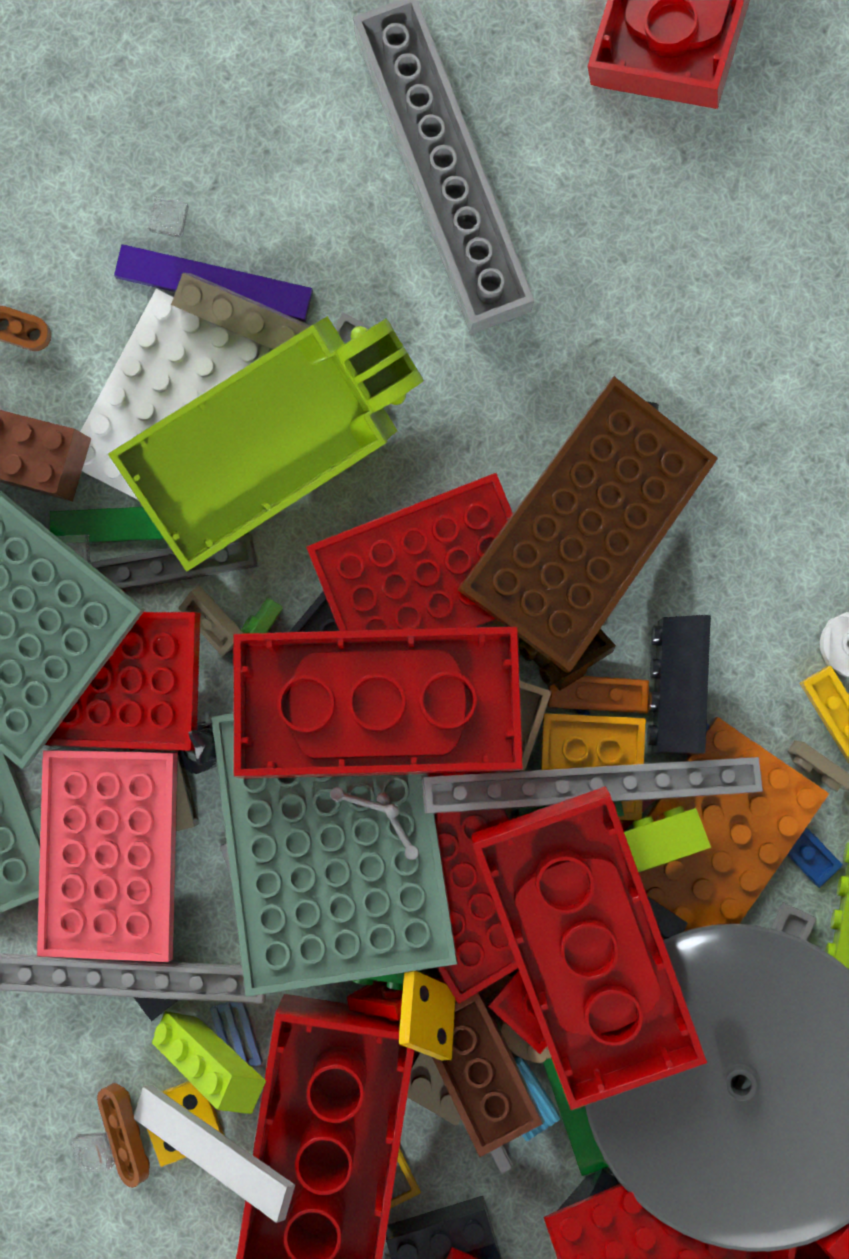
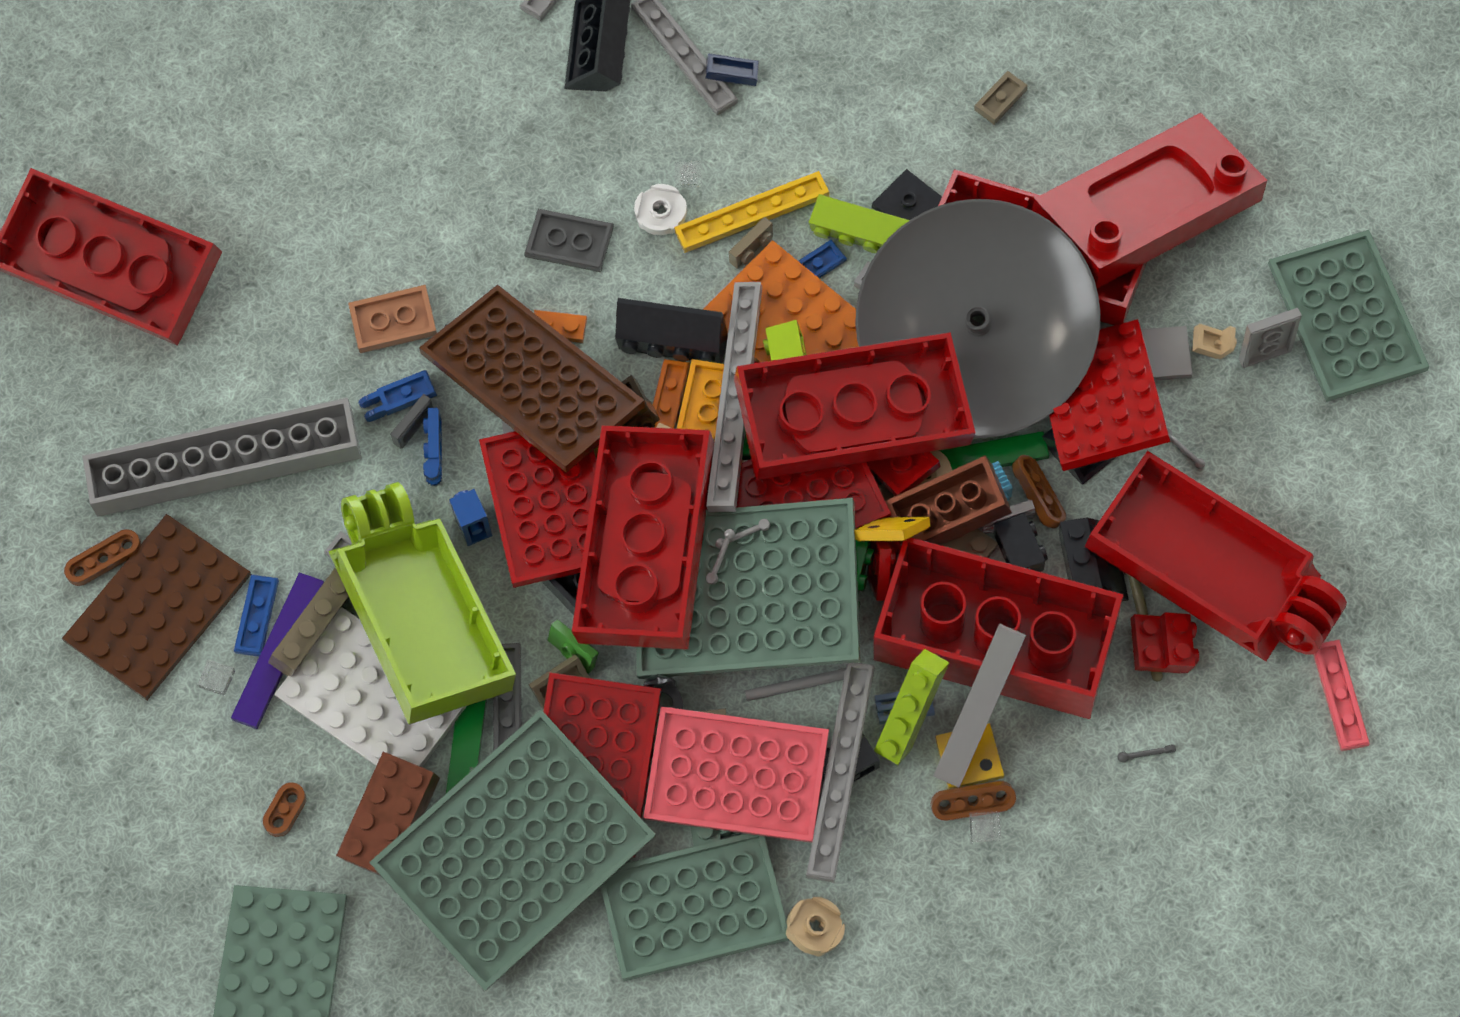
camera: 75 degrees left, 20 degrees down
(250, 130) = (156, 606): none -> reddish brown plate
(254, 248) = (256, 615): none -> blue tile
(297, 41) = (90, 558): none -> dark orange plate
(400, 478) = (470, 517): none -> blue brick
(449, 1158) = (1019, 544): none -> black brick
(492, 418) = (433, 449): none -> blue hinge
(522, 386) = (411, 422): none -> dark grey tile
(530, 1170) = (1039, 491): none -> dark orange plate
(557, 365) = (398, 395): none -> blue hinge
(658, 337) = (392, 318): none -> nougat plate
(678, 547) = (568, 325): none -> orange plate
(797, 536) = (569, 240): none -> dark grey tile

